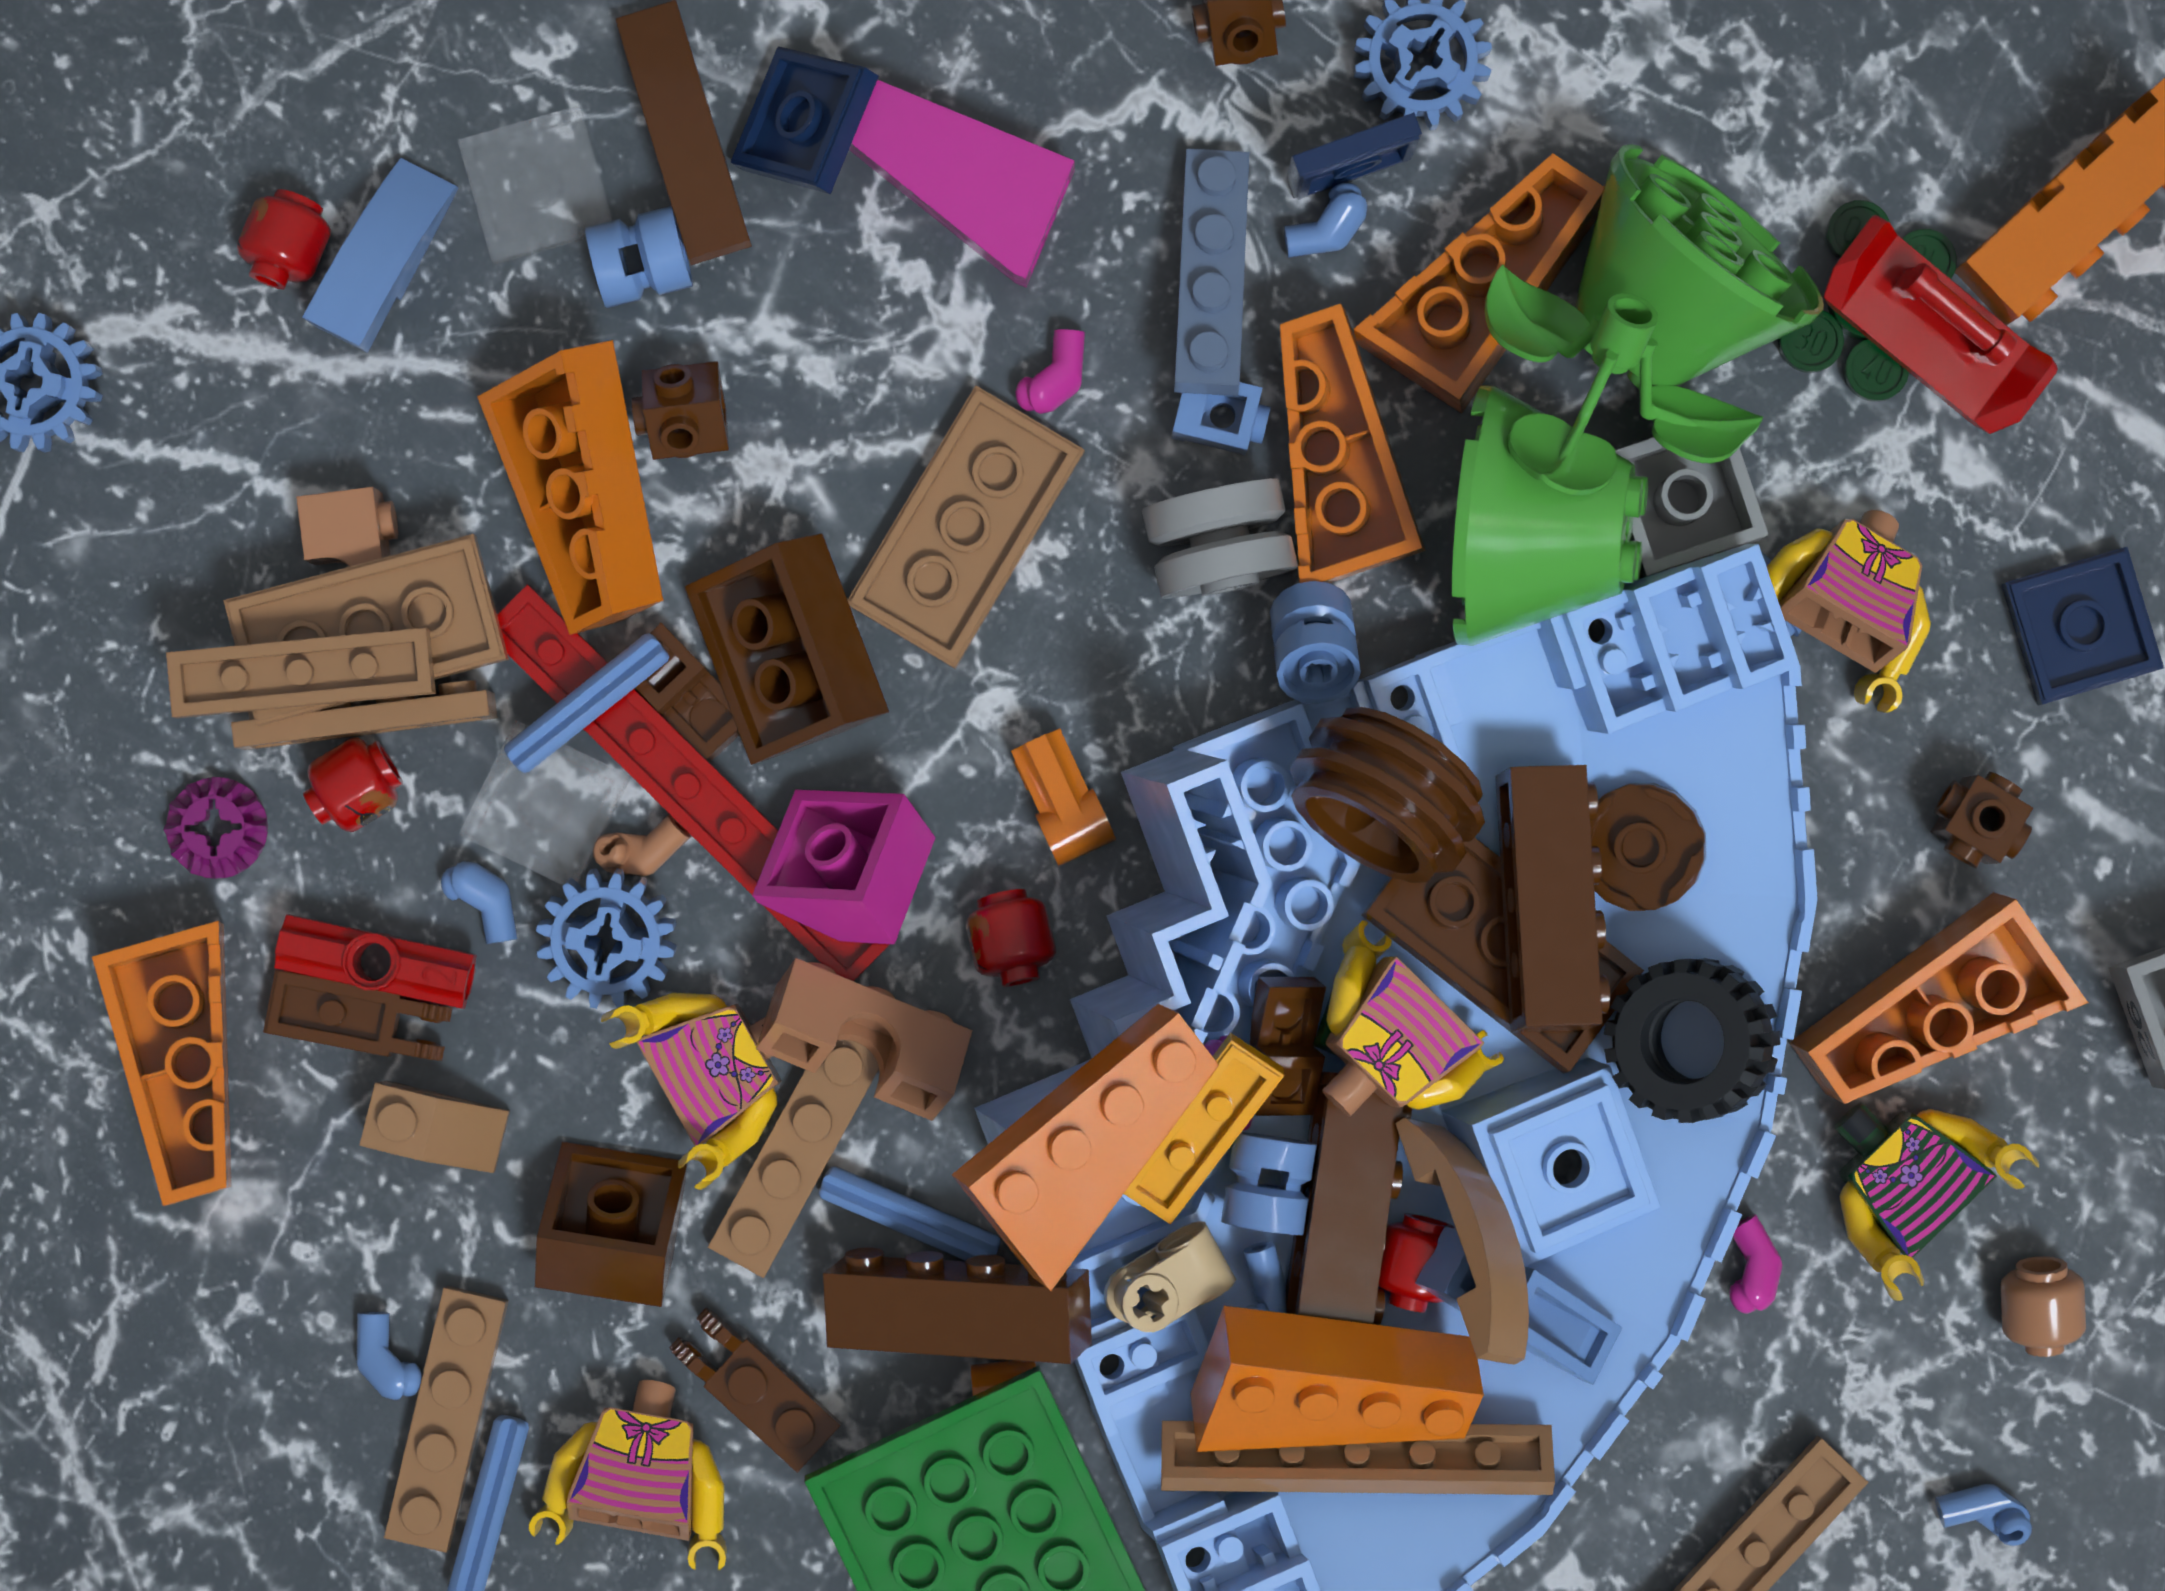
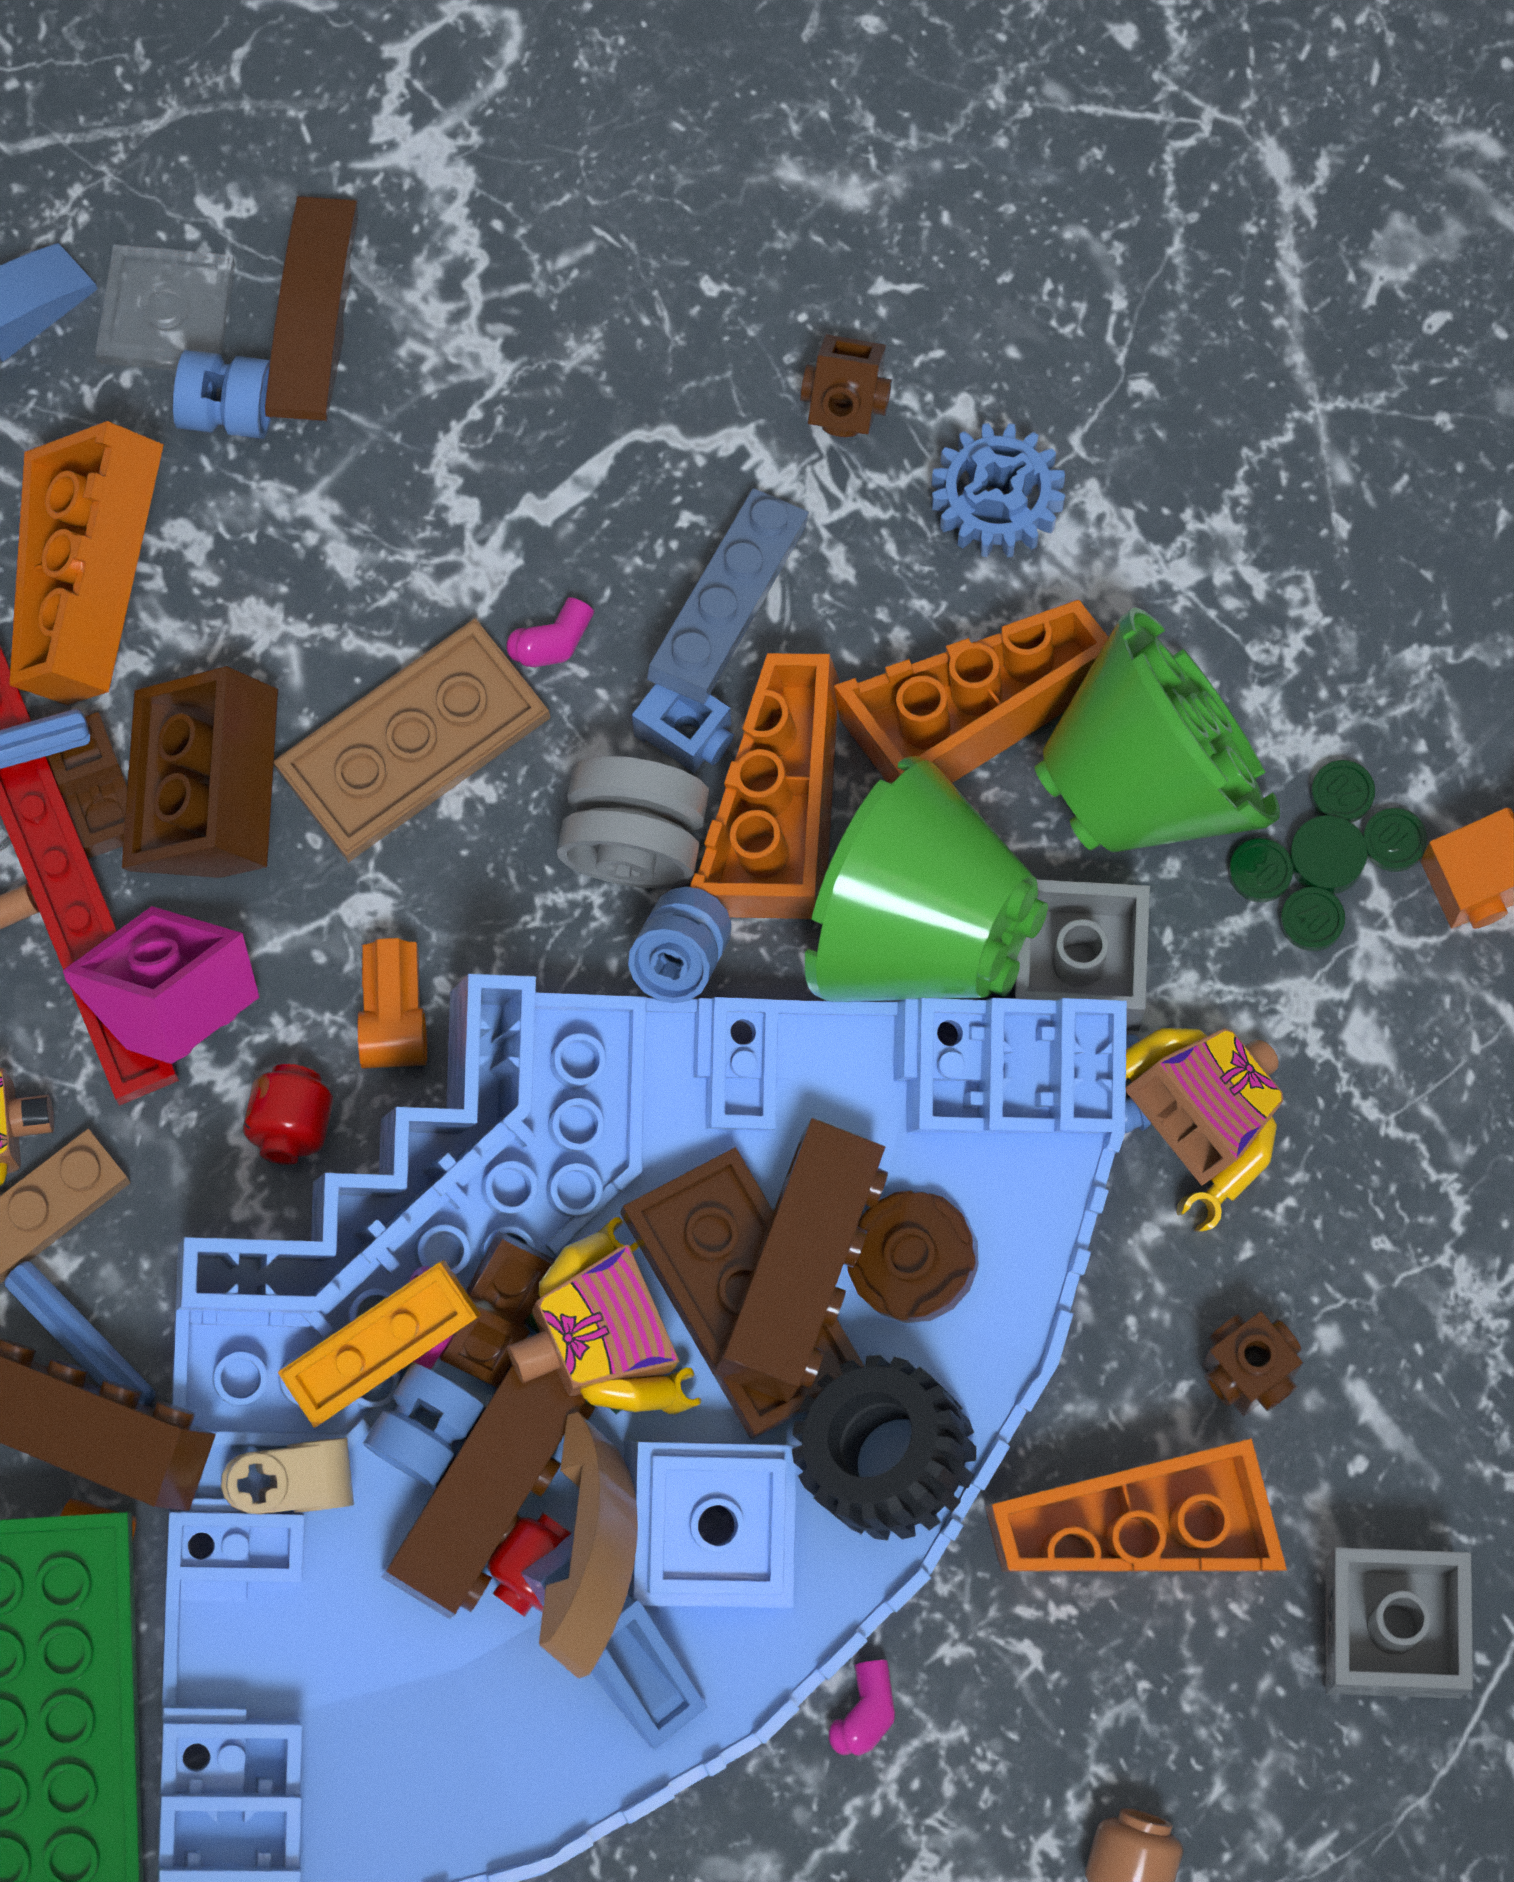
camera: 25 degrees right, 15 degrees down
(682, 410) = (201, 536): reddish brown brick -> none
(804, 119) = (421, 332): dark blue tile -> none
(914, 1048) = (82, 1103): nougat arch -> none
(966, 175) = (547, 436): dark pink slope -> none
(1084, 1143) = (227, 1271): orange wedge -> none
(1266, 1277) = (385, 1536): medium blue arm -> none
(1330, 1383) = (397, 1634): orange wedge -> none
(1334, 227) = (859, 605): medium blue arm -> none
(1353, 156) = (897, 540): dark blue tile -> none
(1387, 794) = (681, 1089): reddish brown wheel -> none
(1488, 1461) = (394, 1722): medium nougat plate -> none
(1567, 459) = (1056, 755): bright green plant -> none
(1914, 1181) = (1053, 1684): torso -> none
(1936, 329) = (1380, 898): red piece -> none
(2082, 626) = (1421, 1227): dark blue tile -> none

